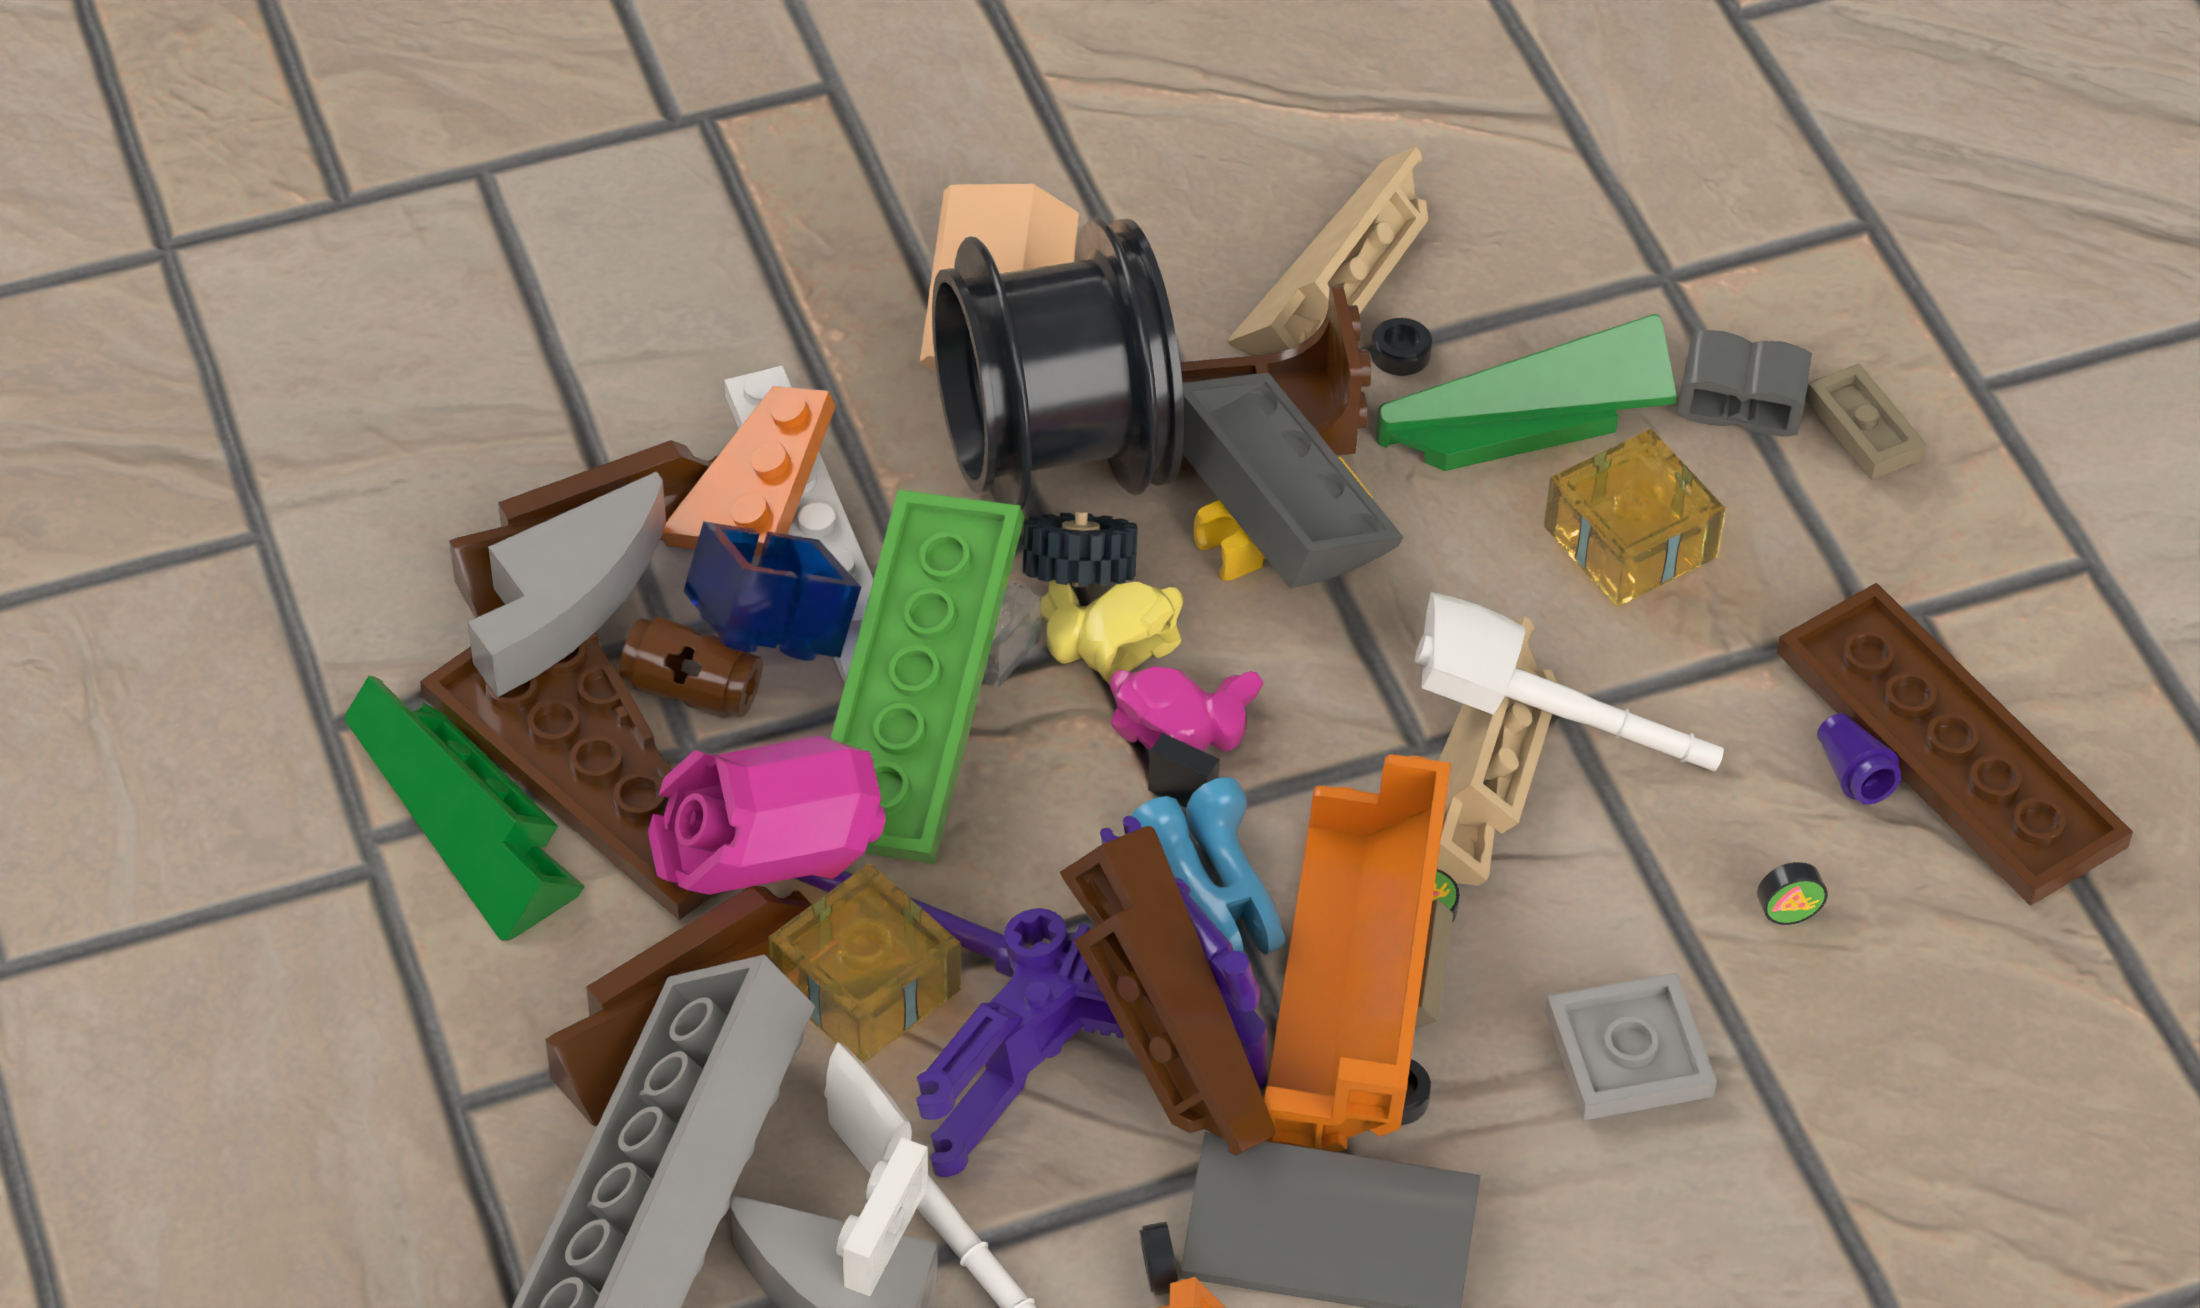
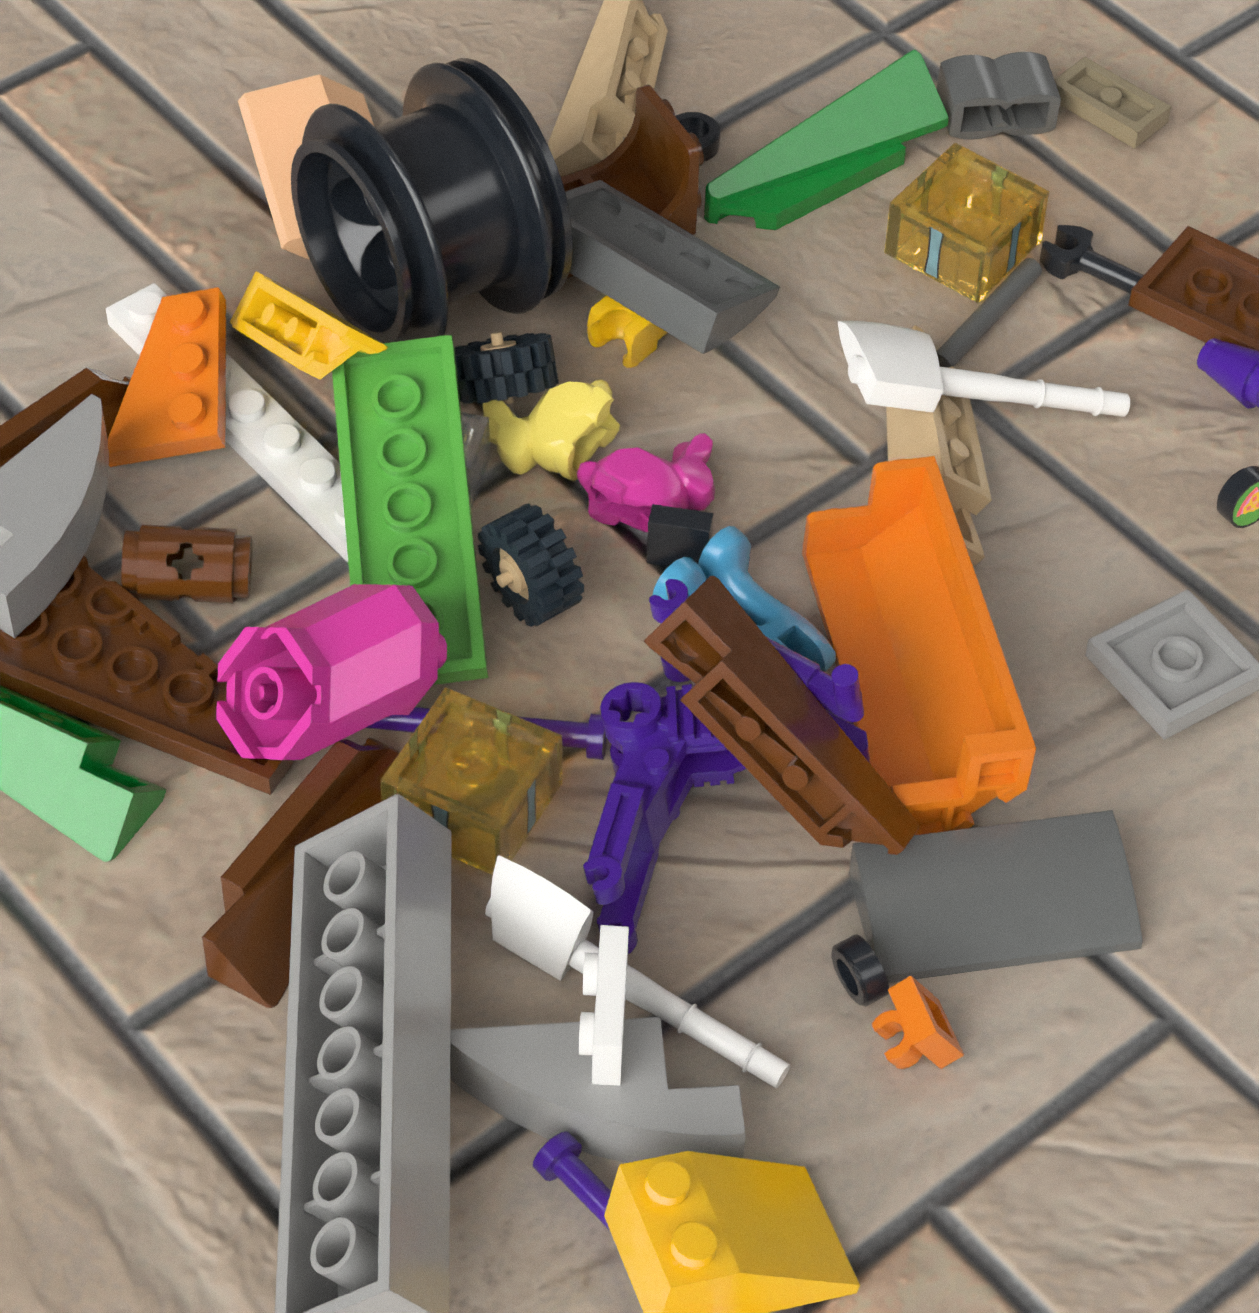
camera: 20 degrees left, 0 degrees up
(790, 599) = (244, 476): clear blue piece -> none
(890, 452) = (298, 328): none -> yellow wedge
(1017, 761) = (531, 564): none -> black wheel
(1619, 622) = (988, 312): none -> dark grey bar
(1753, 587) = (1074, 254): none -> black bar

